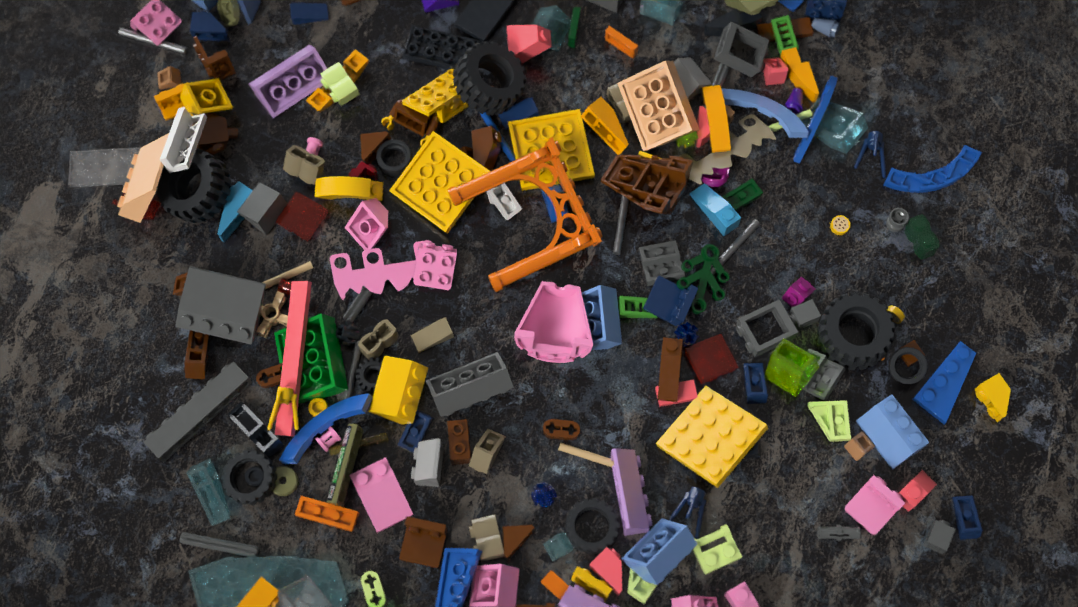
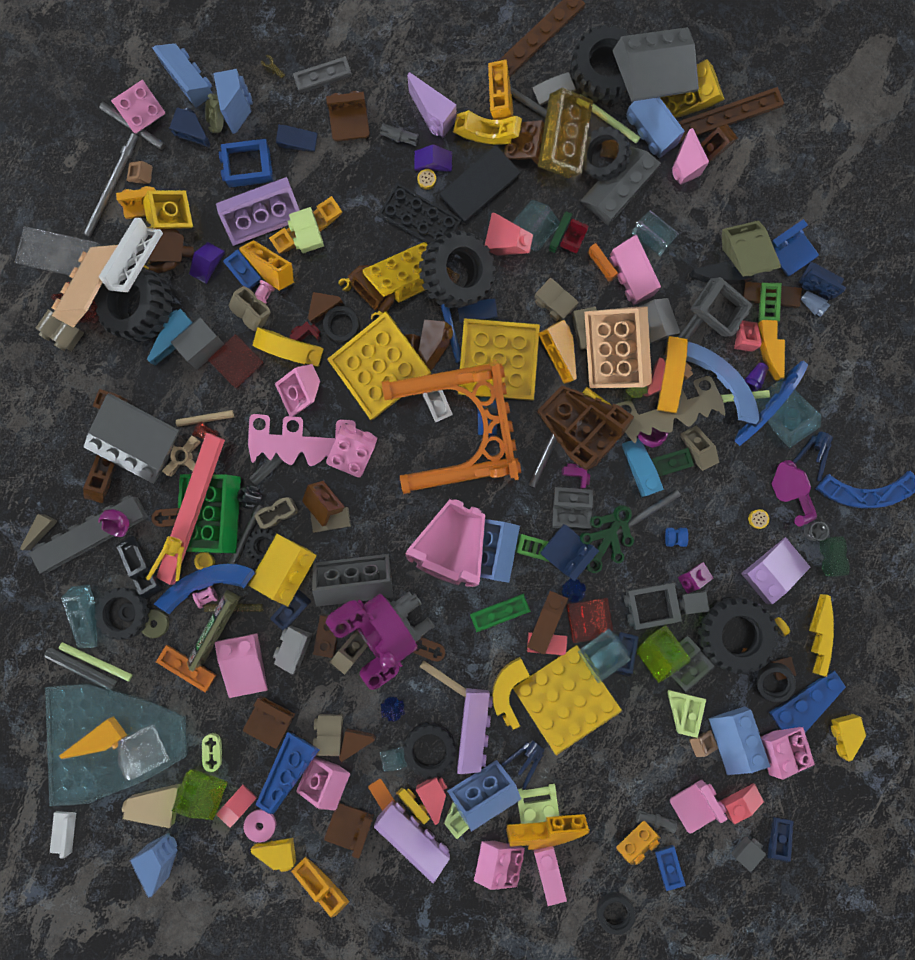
camera: 10 degrees right, 15 degrees up
(125, 232) = (63, 334): none -> dark tan brick
(147, 420) = (39, 528): none -> dark tan slope
(153, 64) = (126, 152): none -> flat silver bar
(216, 65) = (189, 174): reddish brown bracket -> none
(223, 386) = (114, 522): none -> magenta hair
(233, 534) = (95, 661): none -> yellowish green bar
(250, 138) = (205, 262): none -> dark purple slope
(273, 56) = (250, 178): none -> blue window
(287, 134) = (242, 269): none -> blue plate
(312, 123) = (269, 265): none -> light orange slope
(419, 319) = (321, 502): none -> reddish brown panel
(438, 15) = (426, 179): none -> tile
(514, 415) = (384, 630): none -> magenta piece
(588, 26) = (574, 236): none -> dark red bracket
(588, 84) = (555, 300): none -> dark tan brick
(621, 377) = (500, 612): none -> green tile
(649, 431) = (504, 682): none -> yellow arch
(652, 38) = (634, 271): none -> bright pink slope
(654, 227) = (574, 471): none -> magenta bracket
(733, 380) = (604, 655): none -> clear light blue slope
(740, 568) = (549, 833): none -> light orange slope
(765, 175) = (700, 447): none -> dark tan slope
(768, 260) = (676, 537): none -> blue wheel
(828, 556) = (638, 843): none -> light orange bracket
(858, 183) = (791, 484): none -> magenta piece
(866, 574) = (669, 868): none -> blue plate
(872, 266) = (776, 571): none -> lavender slope
(934, 304) = (823, 627): none -> yellow slope
(942, 426) = (787, 752): none -> bright pink slope

